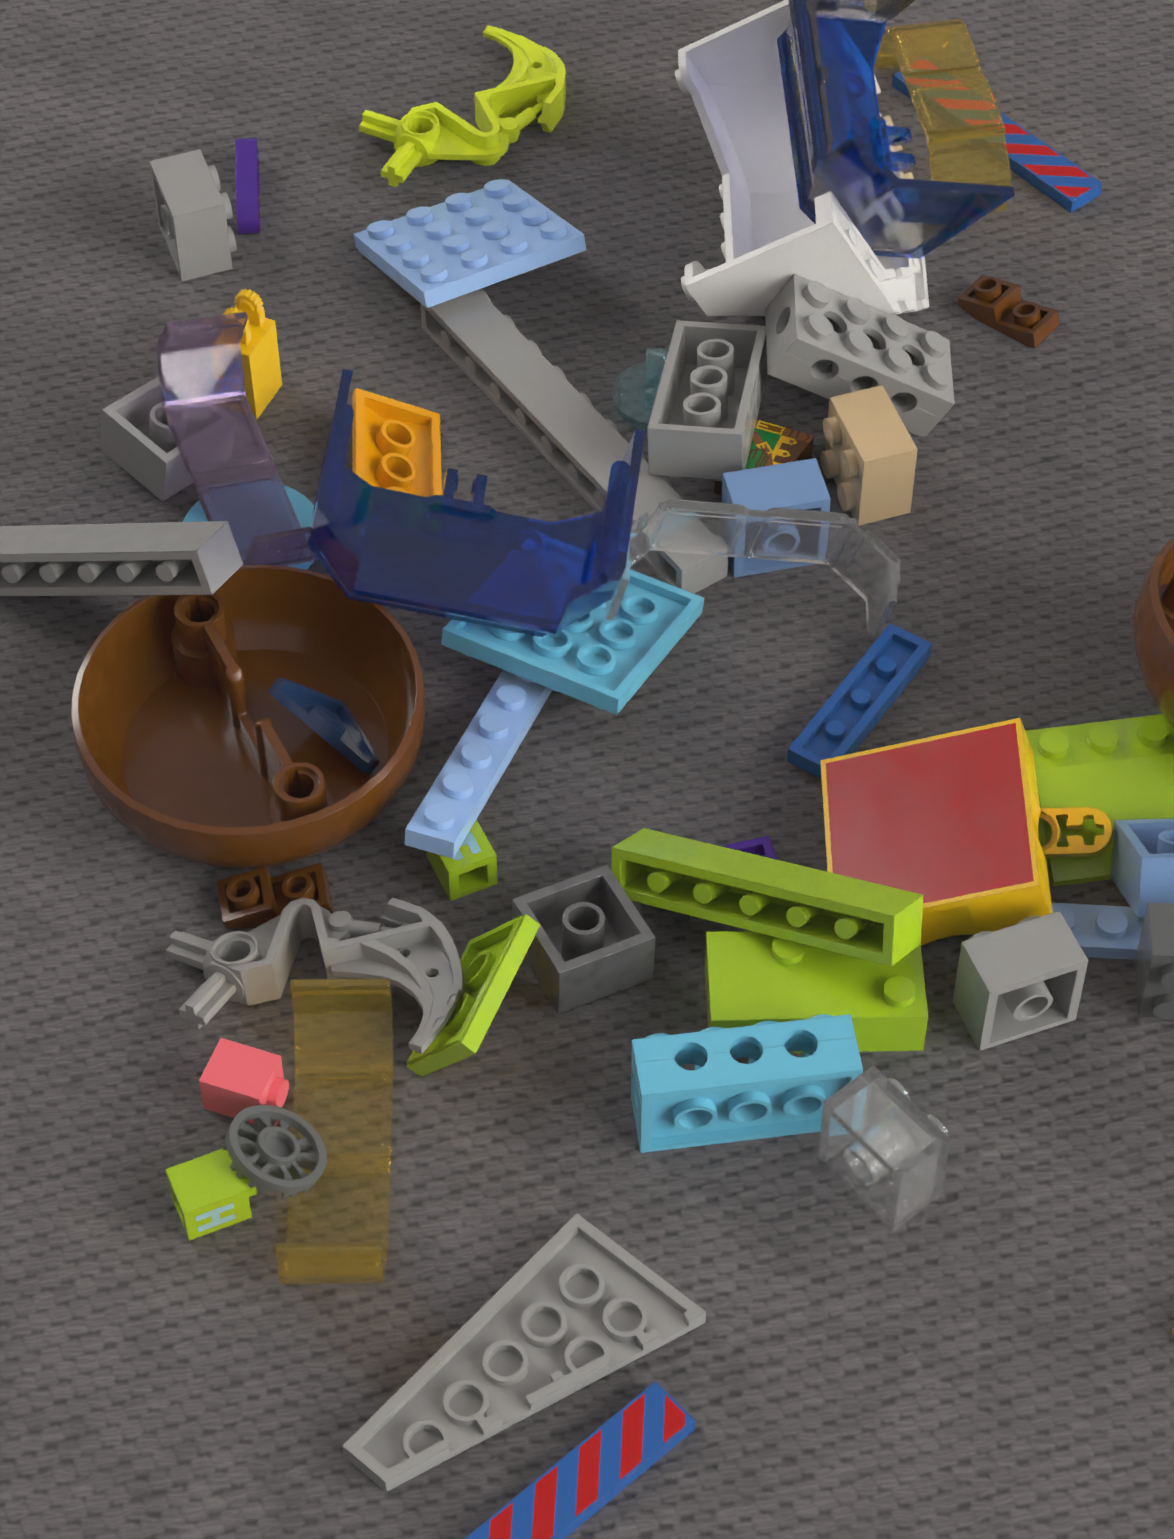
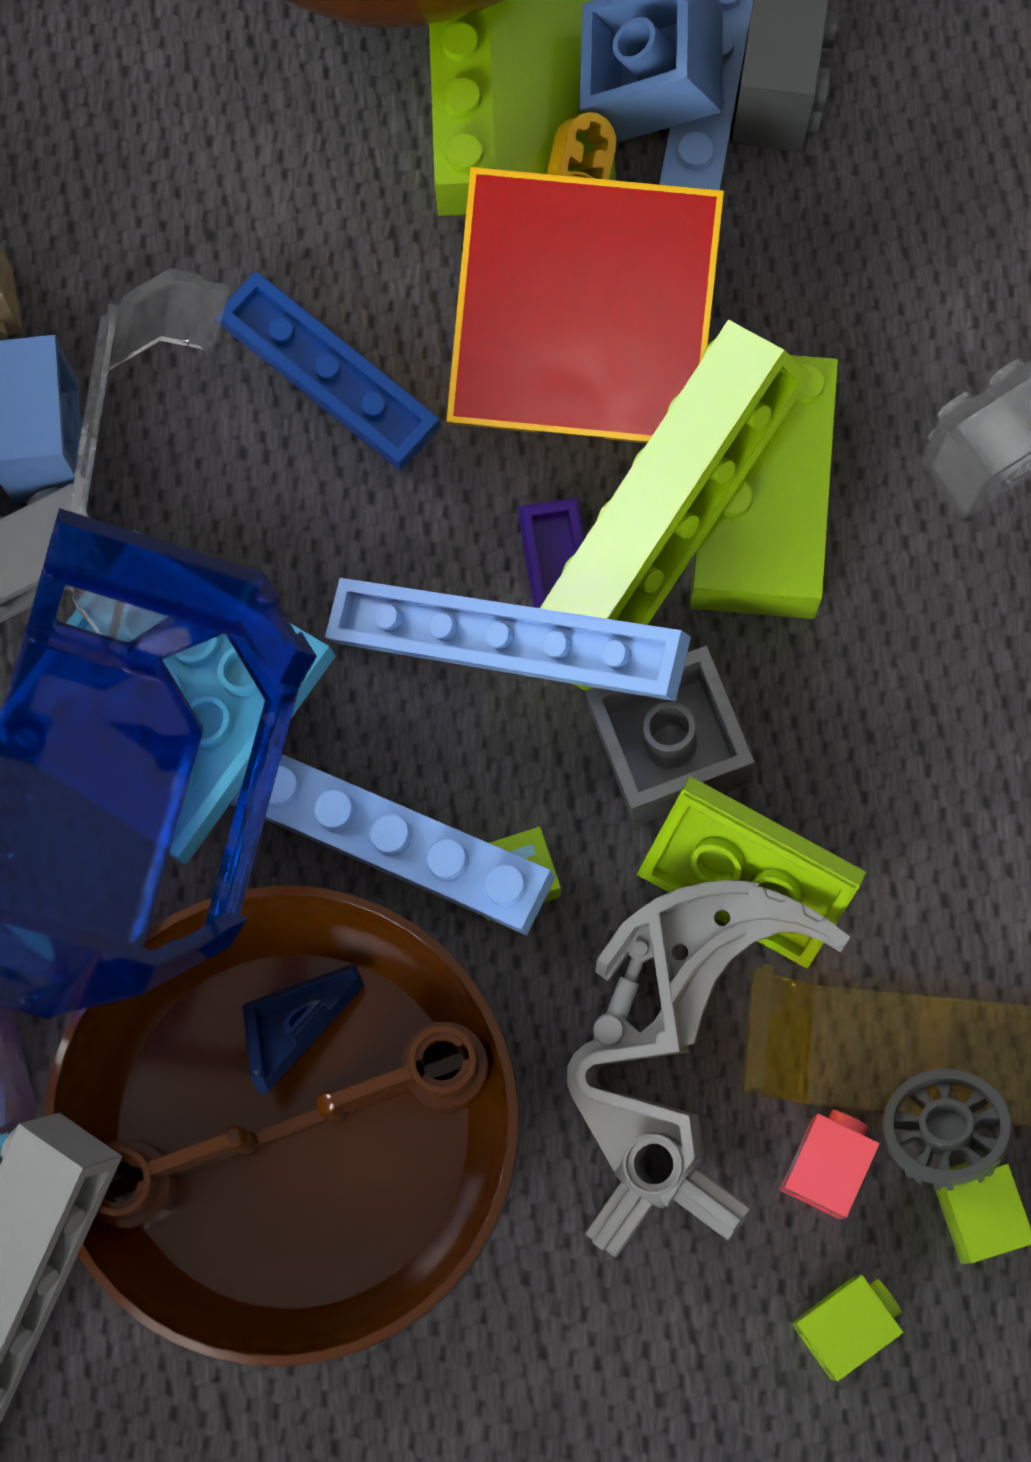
camera: 80 degrees left, 25 degrees up
(115, 1103) = (849, 1325): none -> lime brick
(258, 897) = (546, 1116): reddish brown slope -> none
(639, 808) = (510, 638): none -> light blue plate
(738, 1100) = (903, 572): medium azure brick -> none
(1019, 980) = (788, 254): light grey brick -> none

